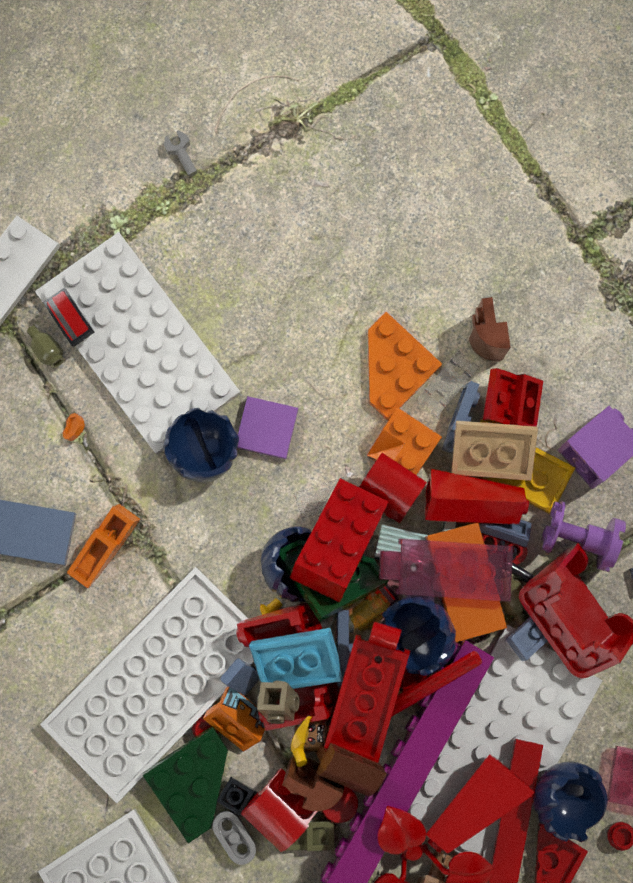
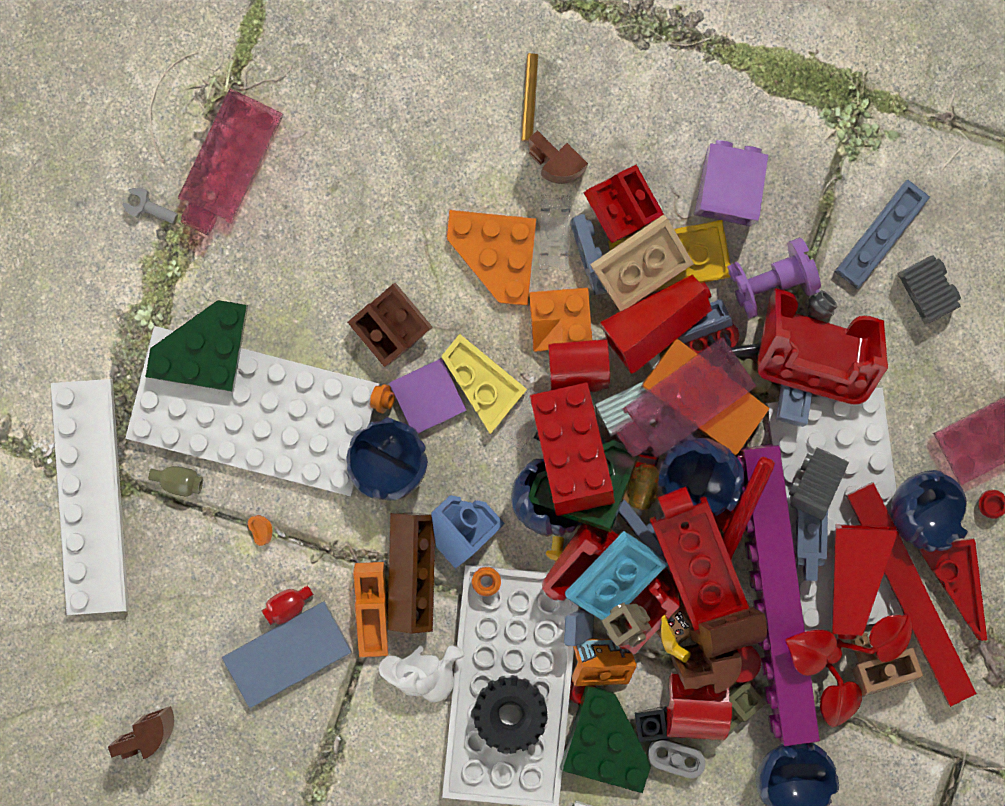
camera: 35 degrees left, 10 degrees up
(46, 494) = (286, 605): none -> red plant
(68, 317) = (178, 439): slope -> none
(100, 621) = (422, 674): none -> white piece
(119, 708) = (514, 736): none -> black tyre
(138, 270) = (202, 349): none -> dark green plate
(153, 540) = (411, 573): none -> reddish brown brick
(192, 589) = (483, 590): none -> orange plate
(215, 538) = (463, 528): none -> medium blue slope
(233, 403) = (382, 398): none -> orange plate
(259, 163) = (228, 161): none -> clear pink hinge
(280, 356) = (390, 325): none -> copper brick
(314, 447) = (483, 381): none -> light yellow wing
(466, 747) = (811, 543): none -> sand blue hinge
(502, 710) = (819, 482): none -> dark grey brick
(505, 277) = (529, 96): none -> pearl gold bar
(601, 585) = (821, 306): none -> dark grey plate

